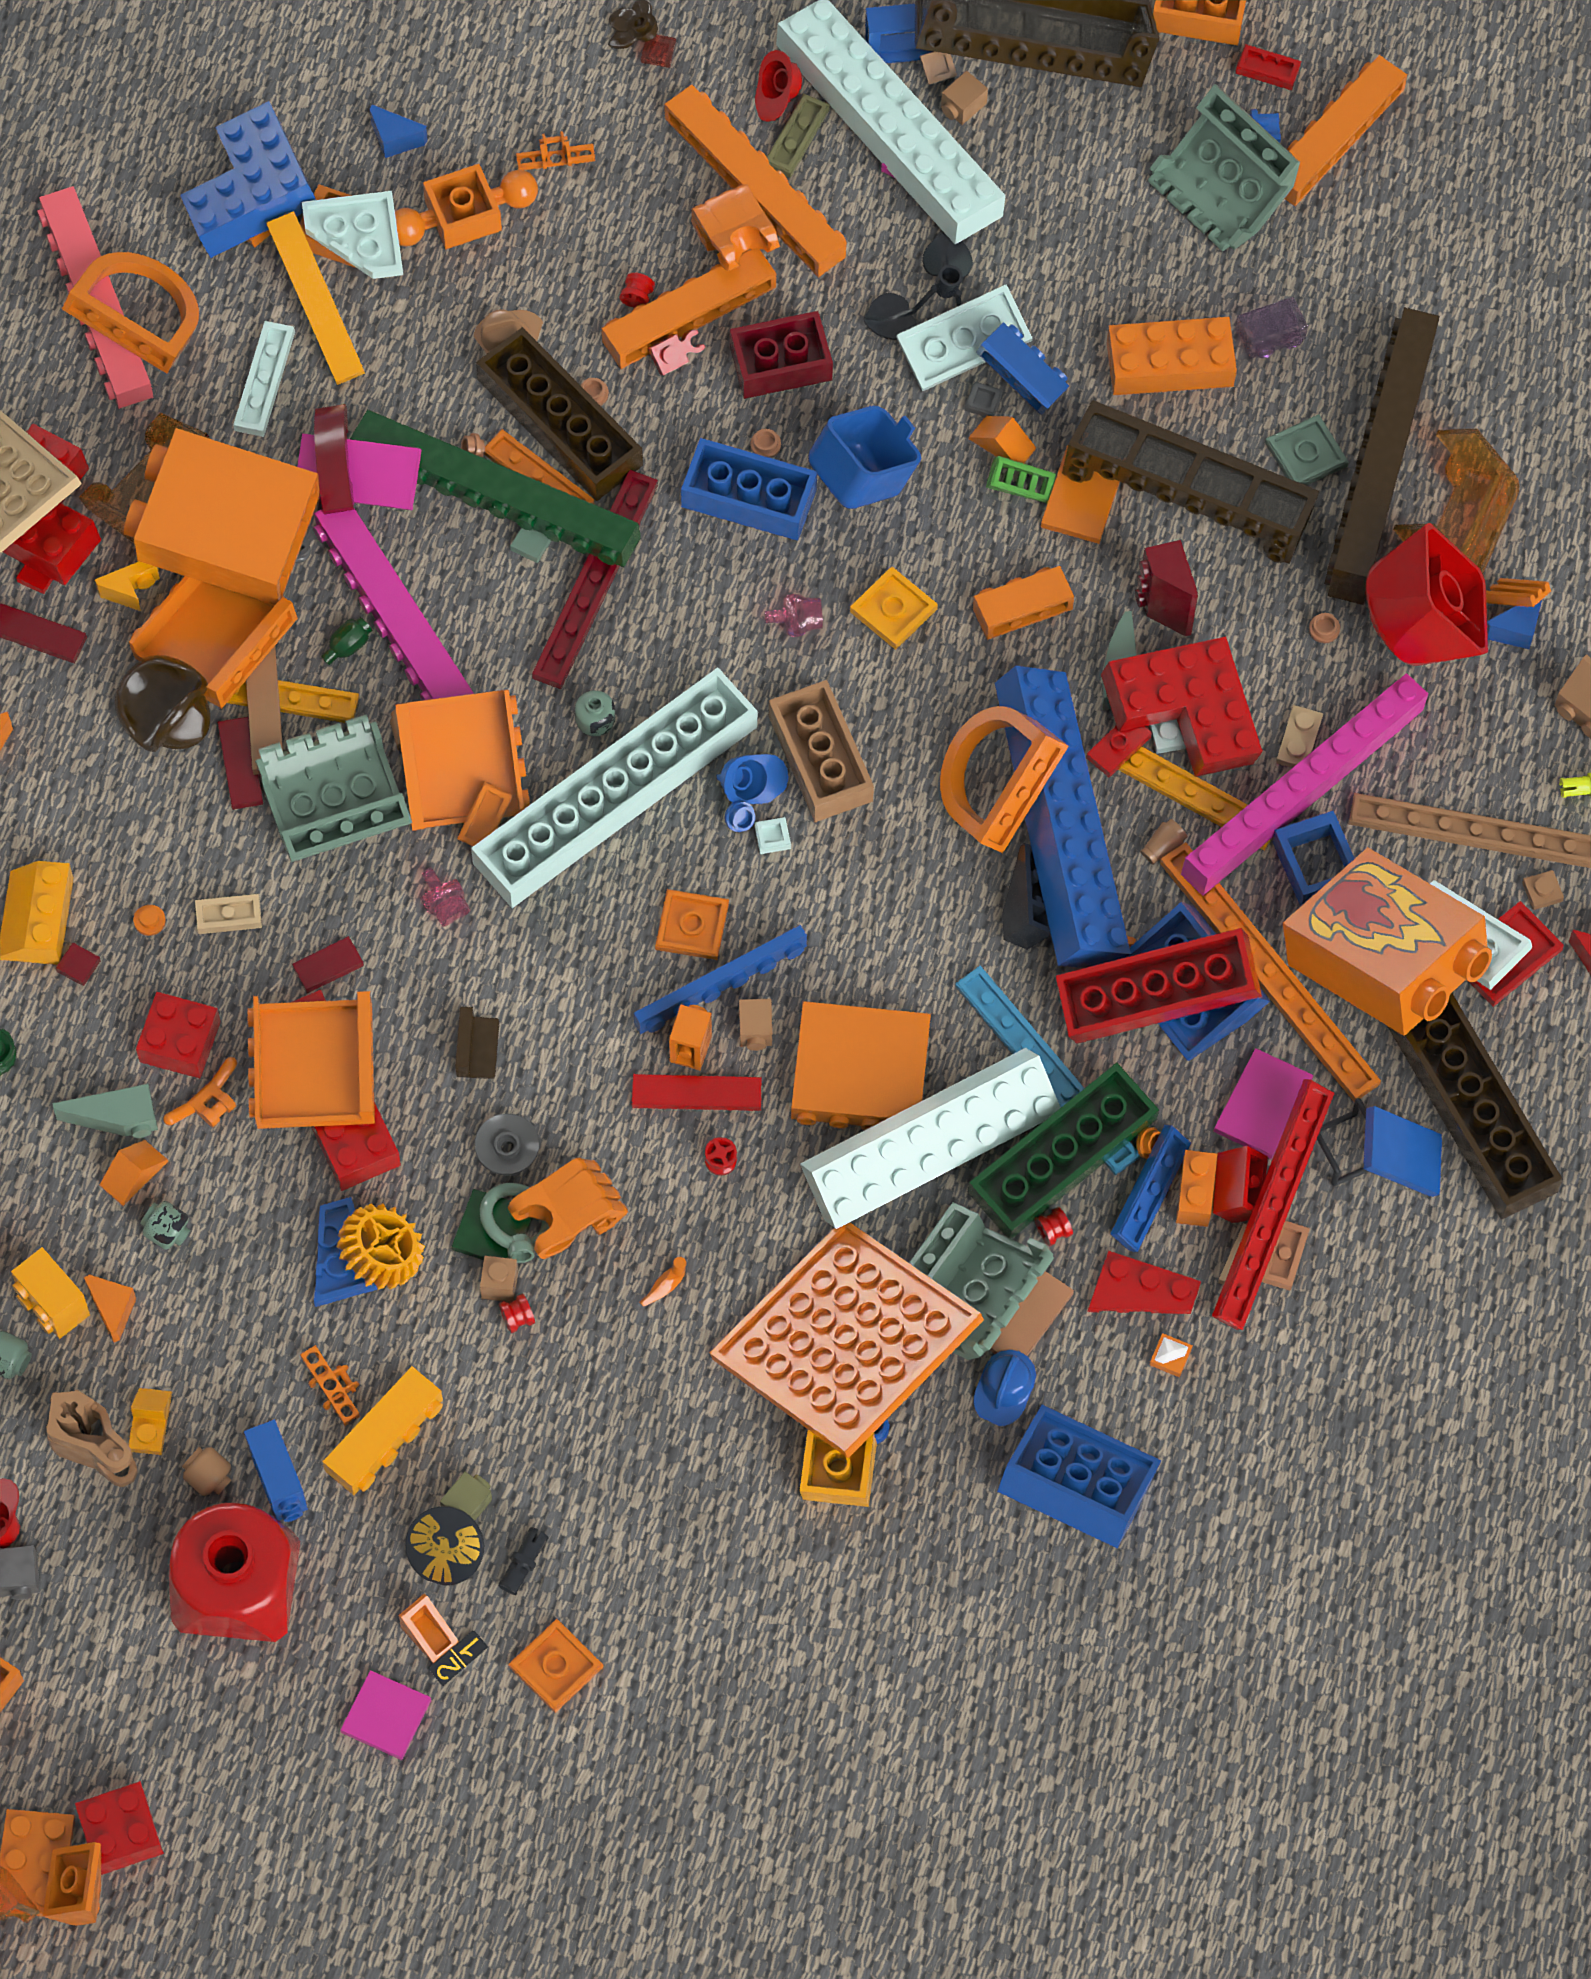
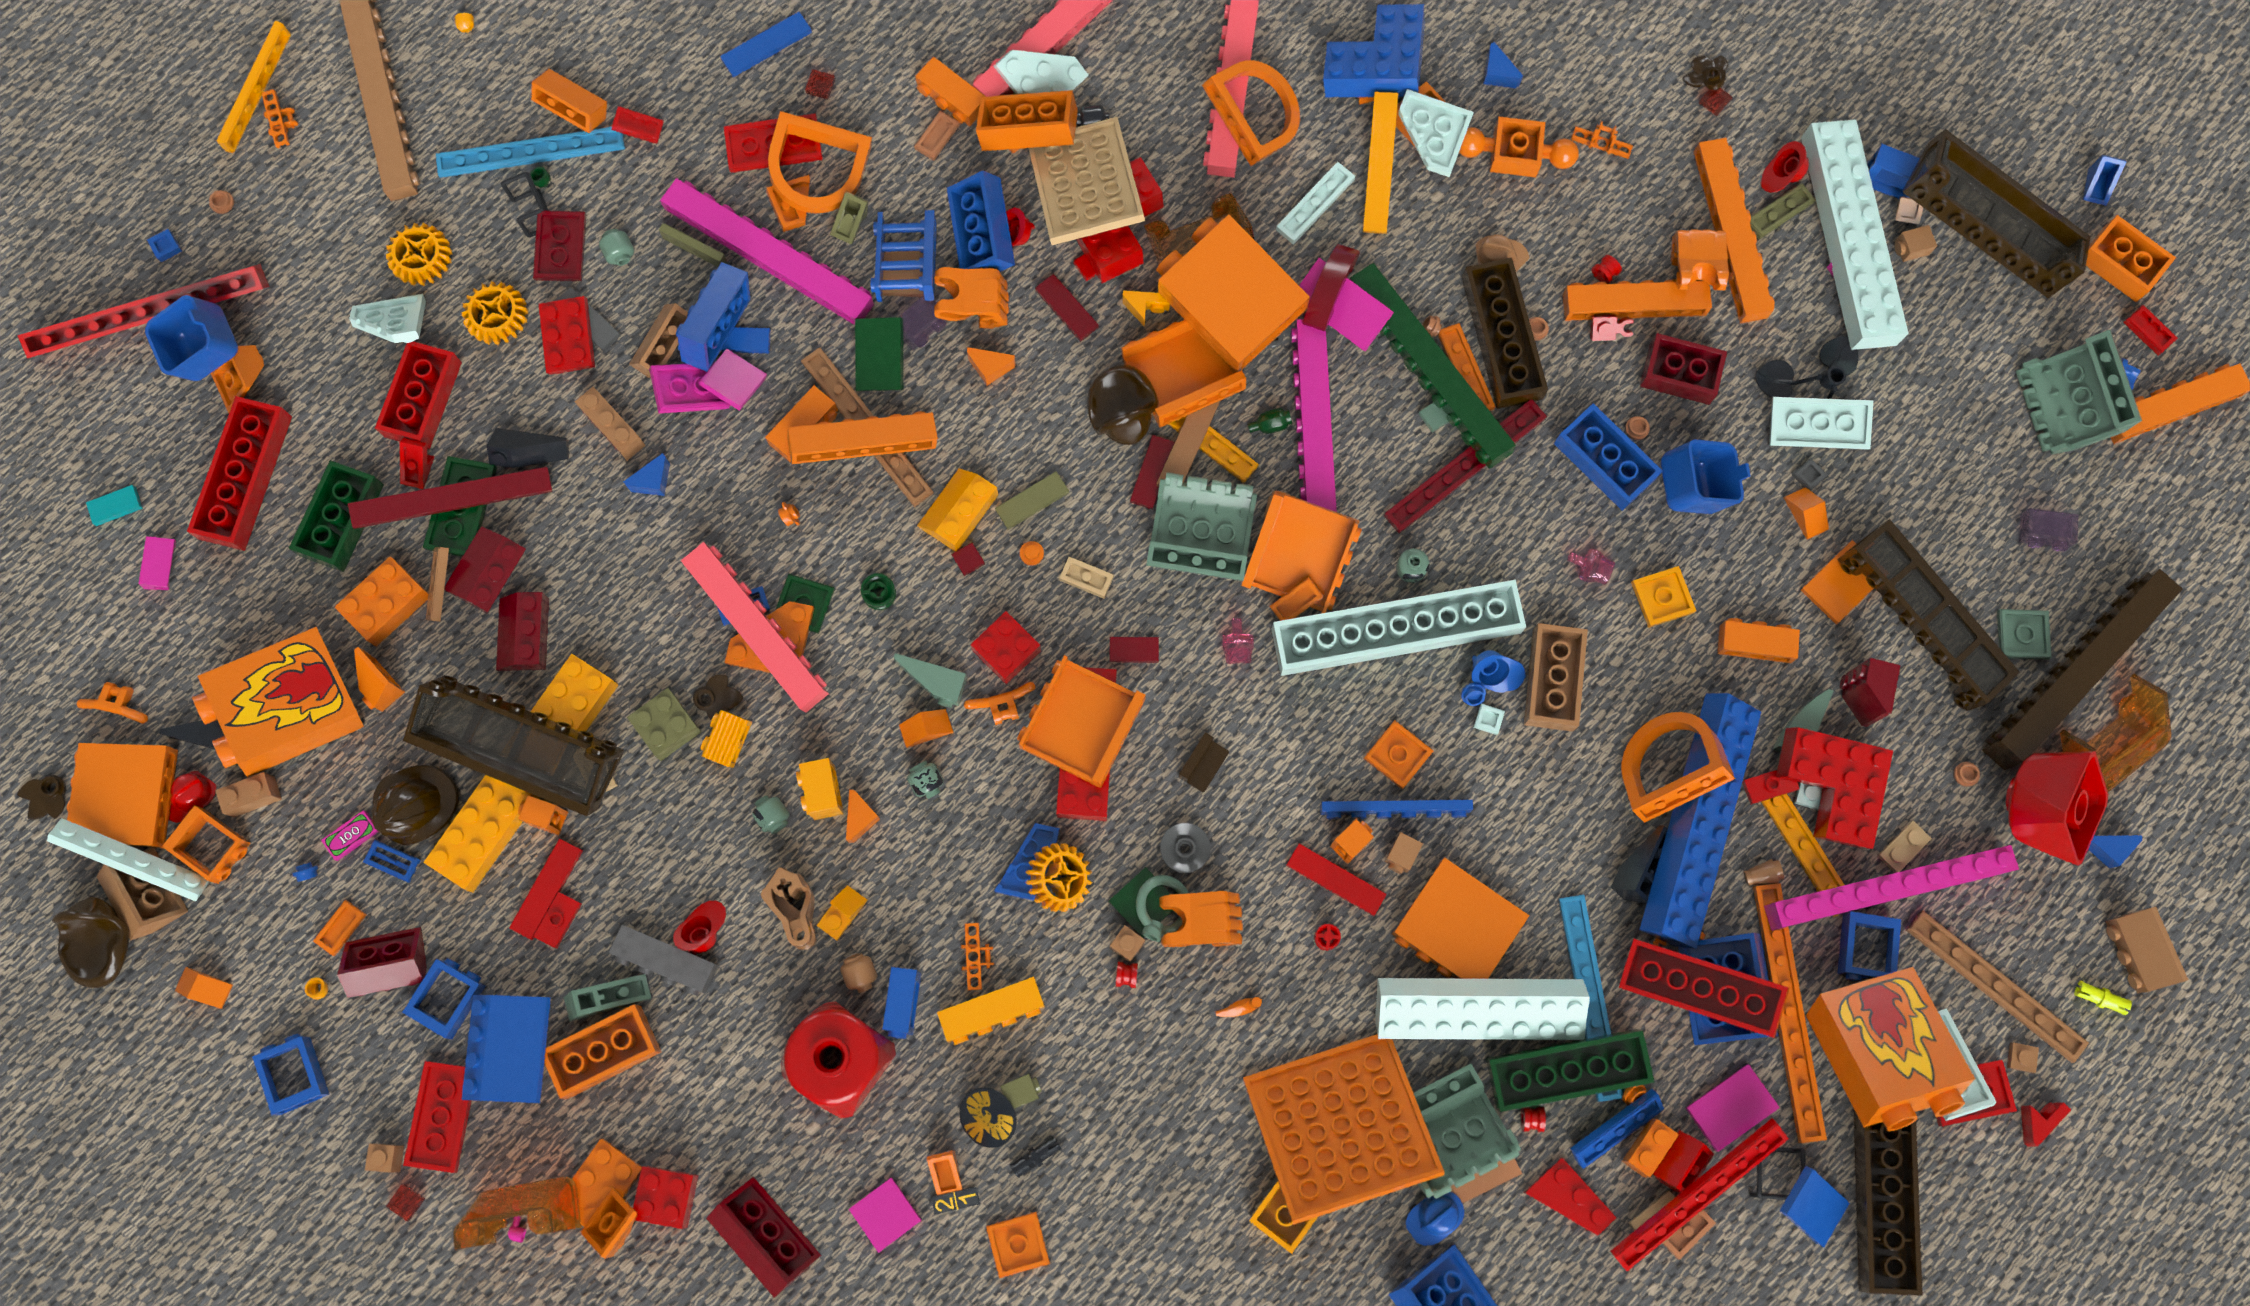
camera: 30 degrees right, 10 degrees up
(116, 863) = (1032, 500): none -> olive tile
(258, 1811) = (763, 1236): none -> dark red slope
(1023, 367) = (1852, 469): blue slope -> none
(1023, 469) = (1796, 529): bright green slope -> none
(1171, 355) = (1964, 512): orange brick -> none
(1171, 1355) = (1565, 1259): tile -> none
(1517, 592) = (2127, 825): orange tile -> none

